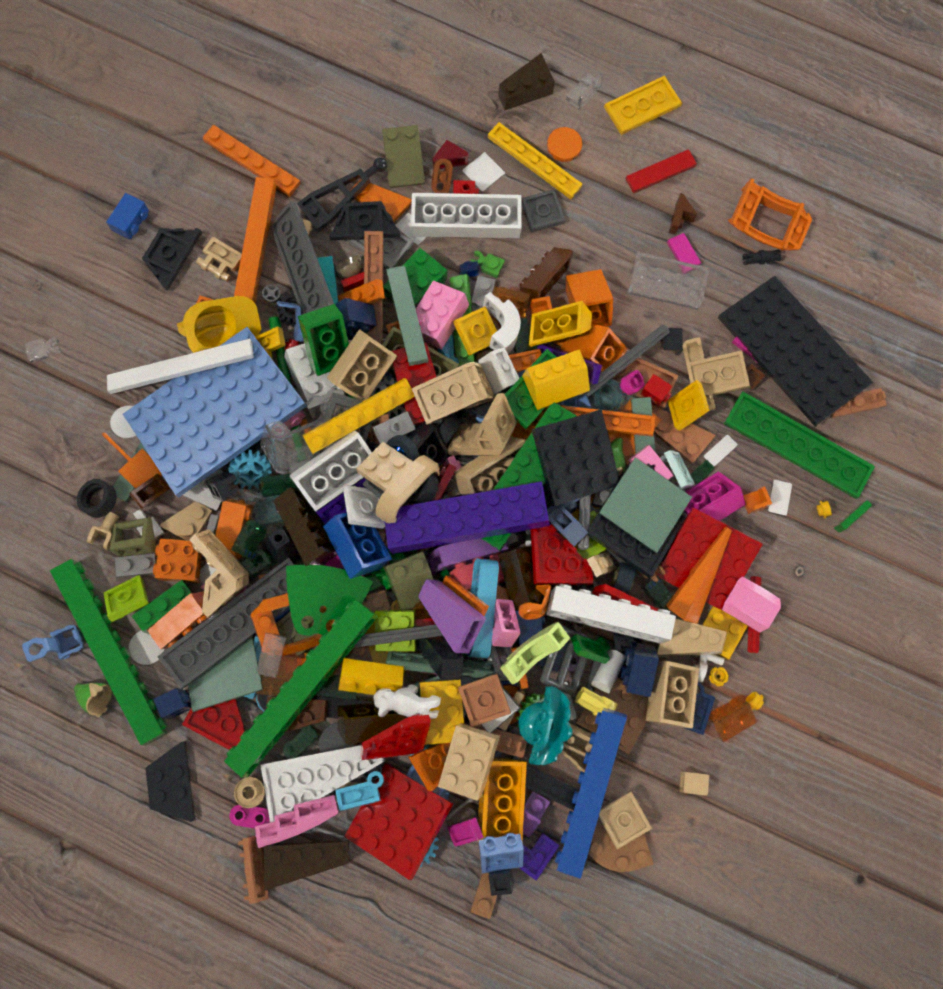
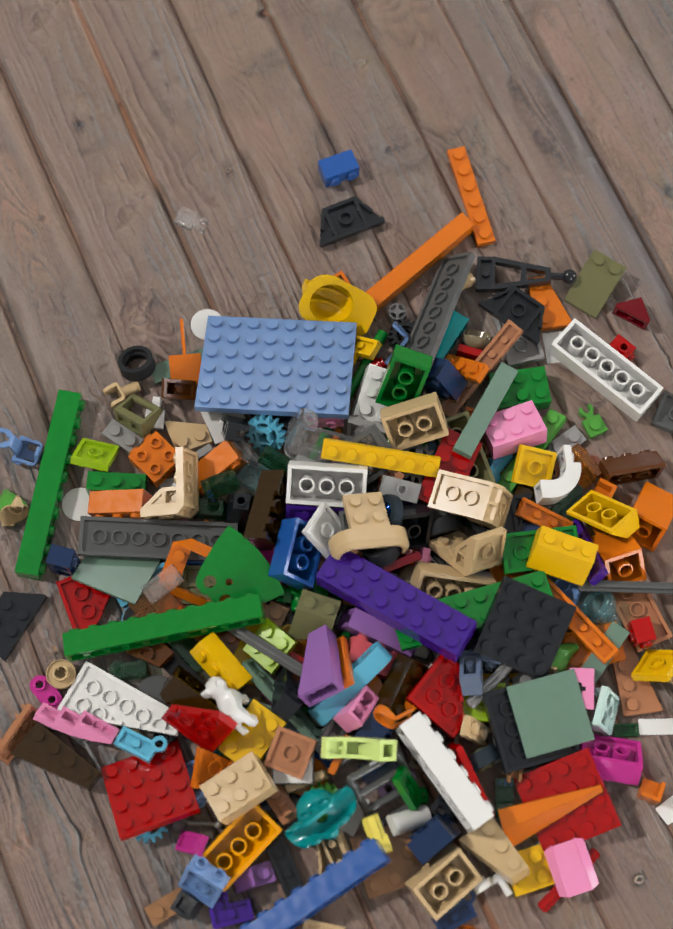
camera: 45 degrees right, 5 degrees down
(180, 366) = (281, 313): white tile -> none
(221, 253) = (386, 253): tan plate -> none
(442, 176) = (612, 323): dark orange plate -> none
(469, 268) = (572, 414): clear blue plate -> none
(483, 171) = (652, 346): white sticker -> none
(499, 370) = (523, 511): white panel -> none
(632, 382) = (626, 609): dark pink plate -> none
(723, 676) = (490, 903): yellow plate -> none

